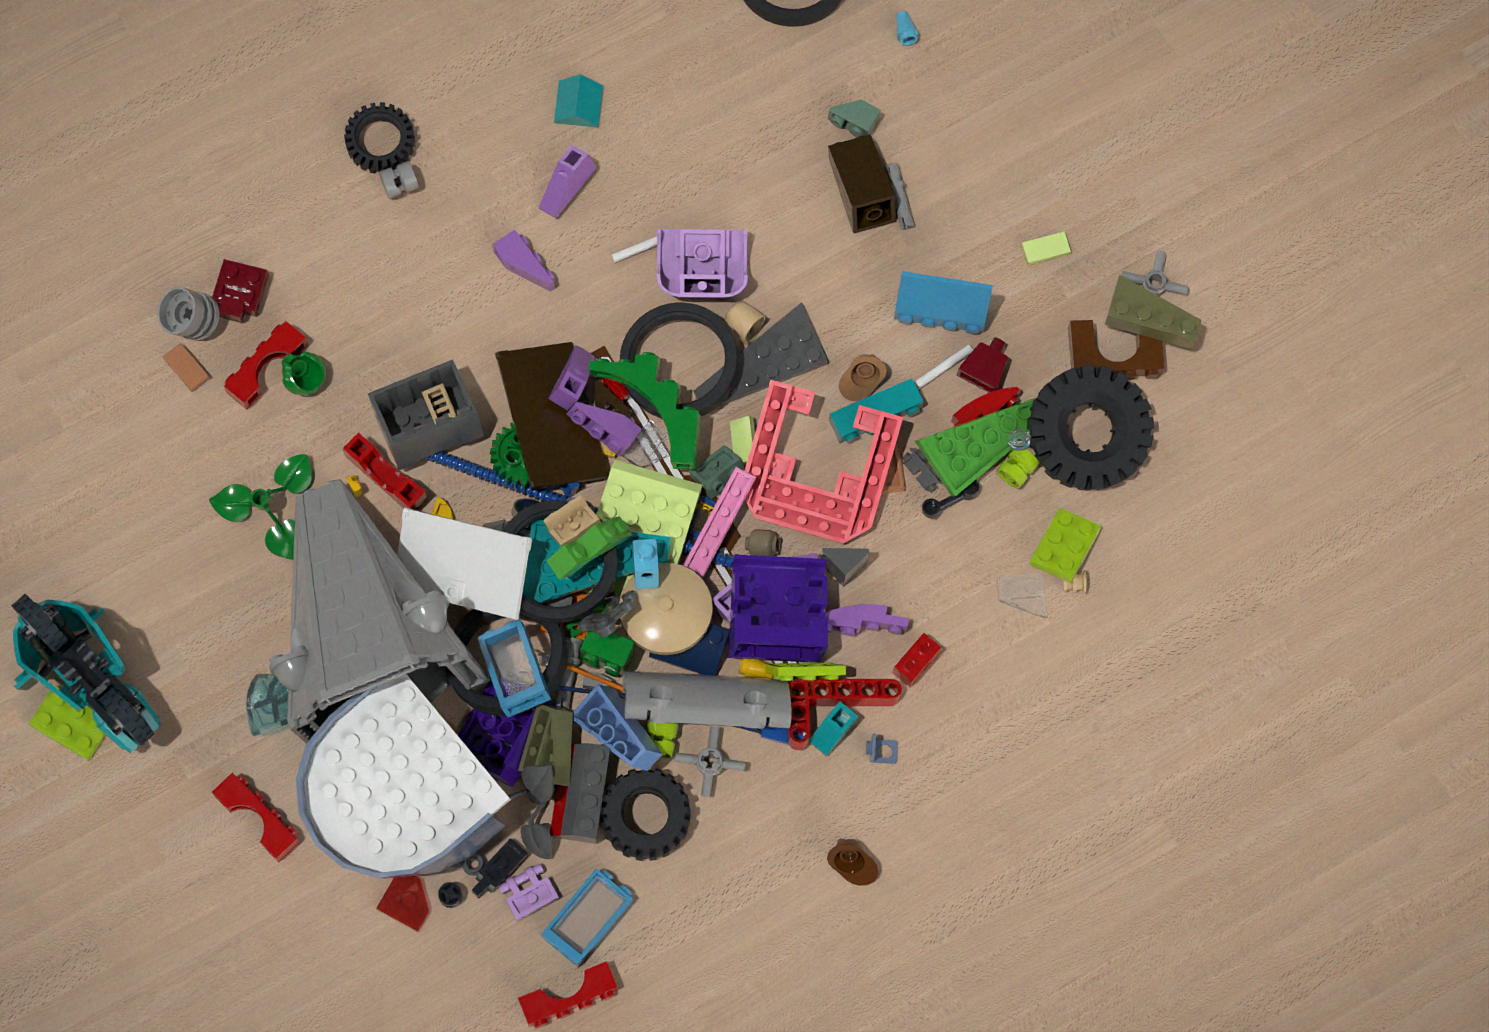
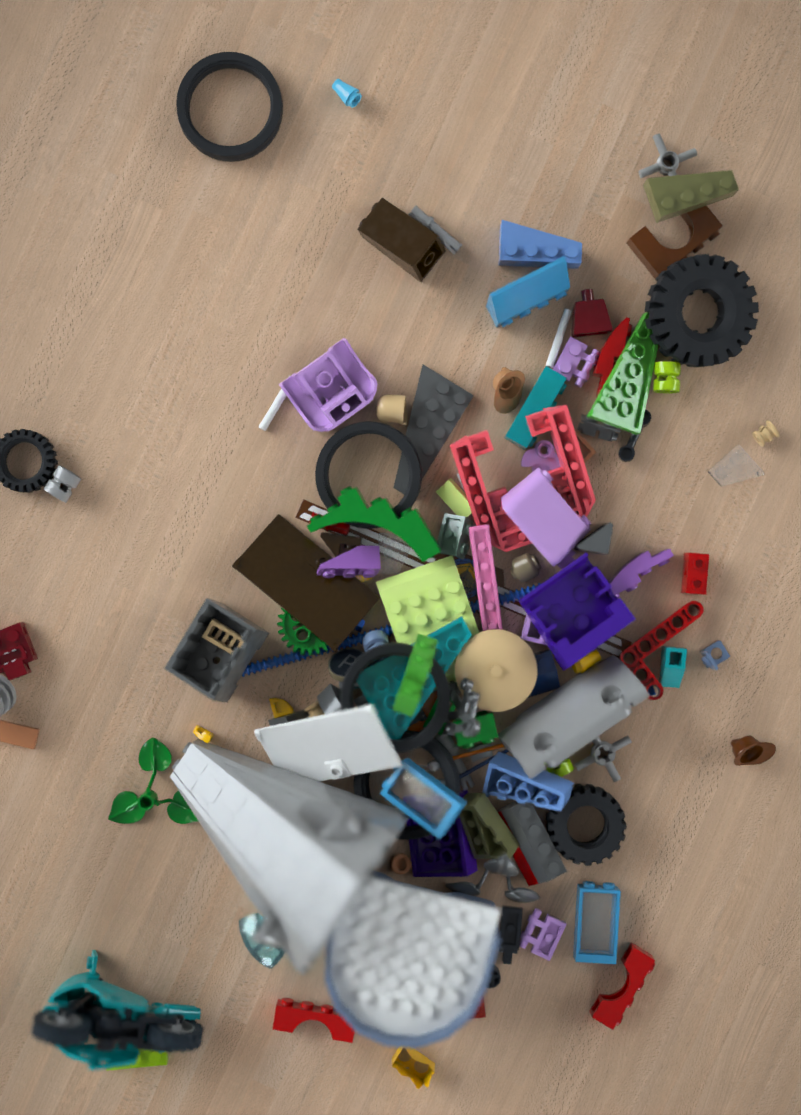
camera: 35 degrees left, 15 degrees up
(244, 383) = (69, 717): red arch -> none
(303, 373) = (104, 680): green hair -> none
(305, 903) = (416, 1077): none -> yellow piece
(372, 464) = (208, 710): red arch -> none
(518, 258) = (195, 480): medium lavender slope -> none
(567, 179) = (185, 395): medium lavender slope -> none
(571, 521) = (389, 666): tan bracket -> none
(572, 379) = (302, 544): medium lavender slope -> none
(578, 101) = (148, 326): teal slope -> none
(645, 561) = (461, 653): medium azure torso -> none
(806, 671) = (626, 642): lime plate -> none
(812, 505) = (545, 516): none -> lavender windscreen
(845, 461) = (534, 458): none -> lavender plate
(855, 116) = (360, 190): sand green slope -> none
(941, 391) = (570, 358): none -> lavender plate
(969, 261) = (535, 248): none -> medium blue wedge
(1019, 440) = (657, 358): clear tile -> none
(1046, 248) = (569, 192): yellowish green tile -> none
(1065, 545) = (741, 412): lime plate -> none

